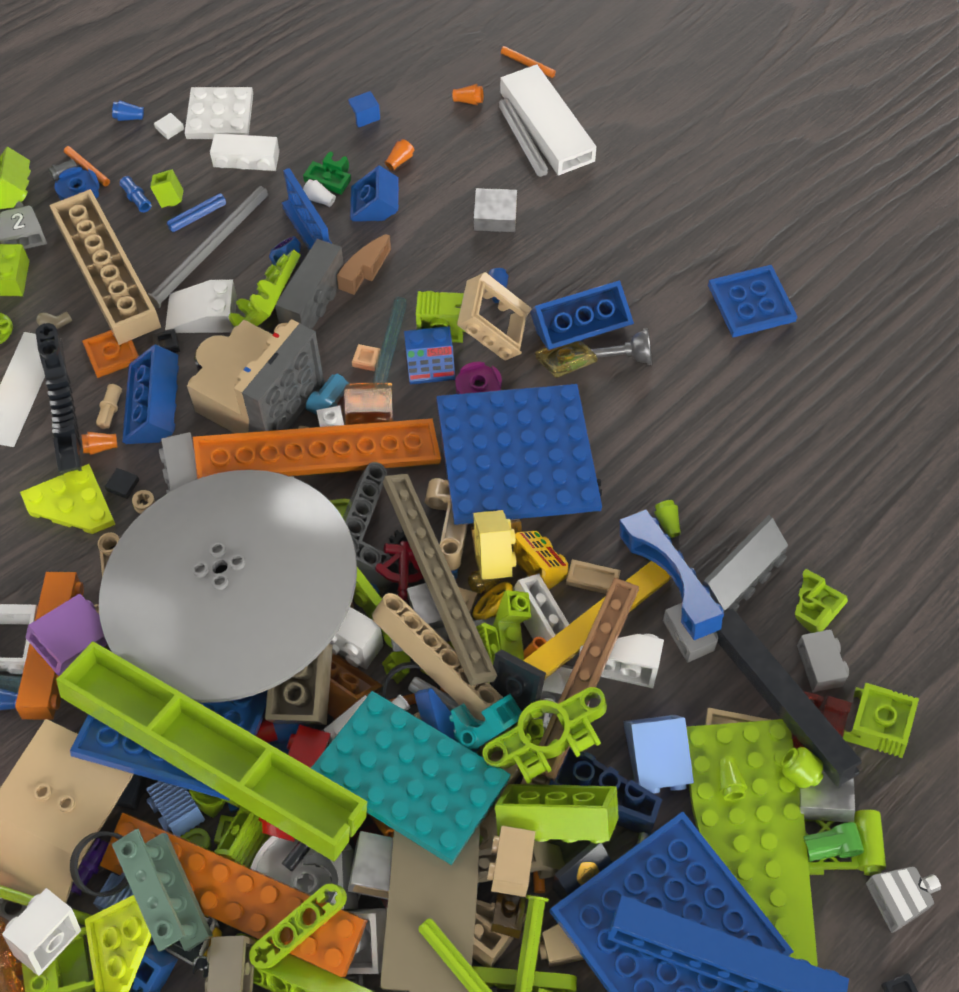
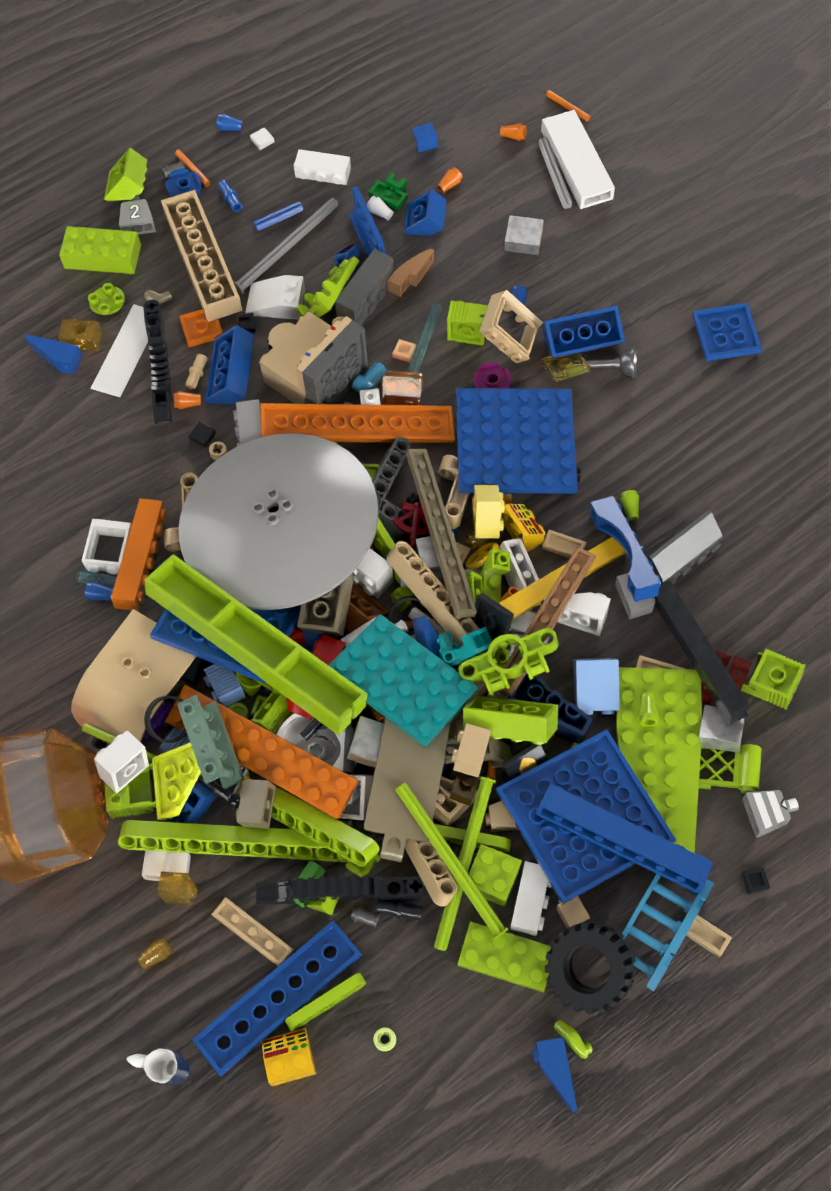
camera: 10 degrees right, 5 degrees up
(66, 632) = (152, 546): medium lavender brick -> none
(70, 501) = (161, 444): neon yellow plate -> none
(167, 188) = (256, 193): lime brick -> none
(218, 111) = (304, 129): white plate -> none
(300, 929) = (306, 775): lime beam -> none
(429, 355) = (455, 353): blue slope -> none
(802, 767) = (704, 707): lime head -> none
(817, 602) = (740, 584): lime slope -> none
(823, 660) = (736, 628): light grey brick -> none
(839, 841) = (726, 765): bright green piece -> none

